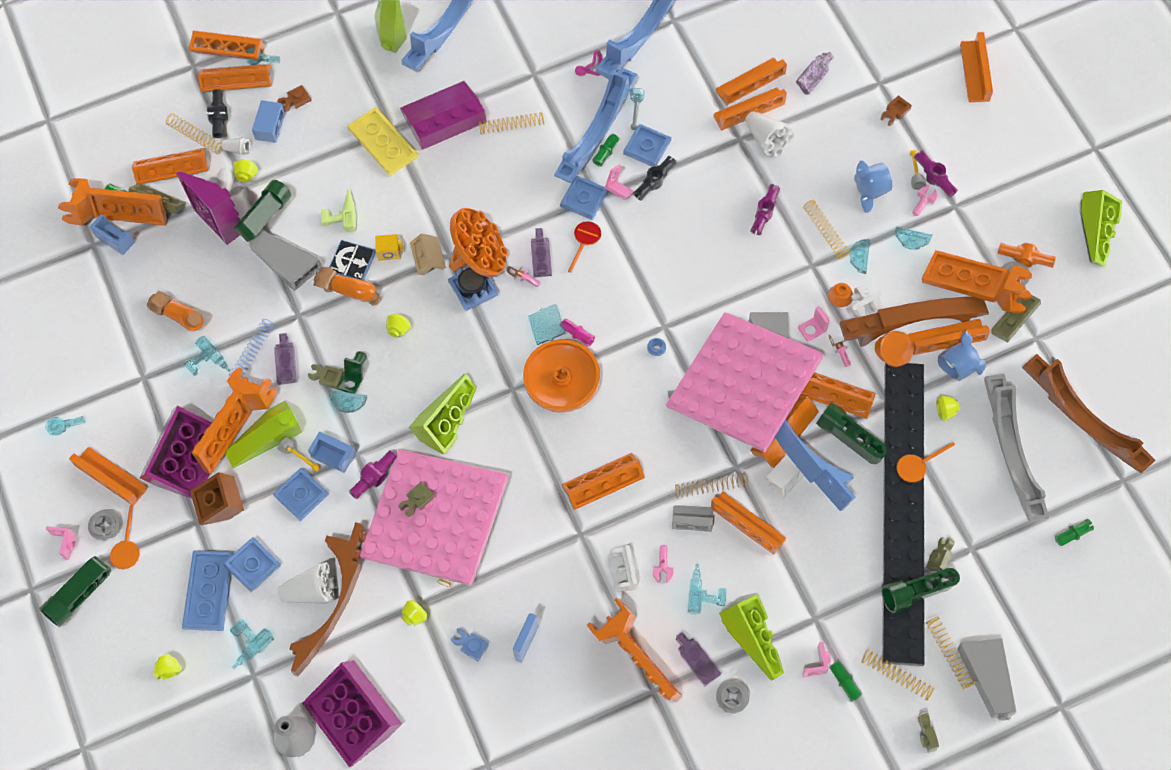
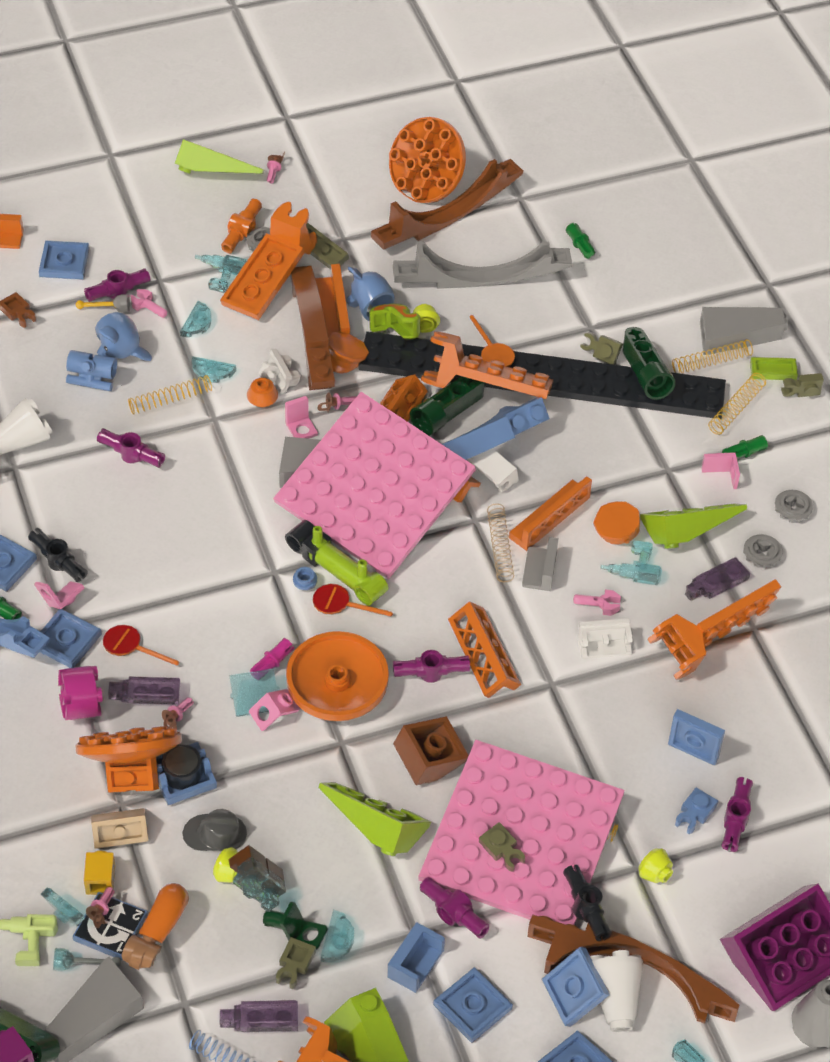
camera: 90 degrees left, 15 degrees down
(287, 446) = (401, 1017): hinge -> none
(307, 557) = (575, 986): none -> medium blue tile
(324, 237) = (64, 959): none -> clear light blue hinge
(358, 230) = (63, 910): none -> clear light blue plate
(358, 250) = (99, 907): none -> piece
(380, 555) = (587, 902): none -> black pin
(381, 340) = (258, 877): none -> clear light blue hips
(429, 315) = (214, 831): none -> dark grey piece
(454, 671) = (734, 823): none -> magenta pin
(502, 446) = (430, 749): none -> dark orange slope
(528, 209) = (79, 692): none -> dark pink brick
(532, 338) = (277, 703): none -> bright pink bracket
(580, 433) = (422, 666): none -> magenta pin
(642, 369) = (335, 598): none -> red piece
(683, 354) = (317, 549): none -> lime piece
(742, 575) = (617, 522): none -> orange hat
(794, 718) = (803, 505): none -> light grey gear
(839, 169) = (91, 370): none -> medium blue pin
(880, 456) = (472, 366): none -> orange hinge
(940, 382) = (395, 317): none -> lime animal
(949, 709) = (774, 368): none -> lime tile
(960, 134) = (64, 260): none -> medium blue tile
(978, 251) = (227, 265): none -> clear light blue piece
(1109, 272) = (274, 165): none -> bright pink piece
(1133, 390) = (427, 159): none -> orange bracket

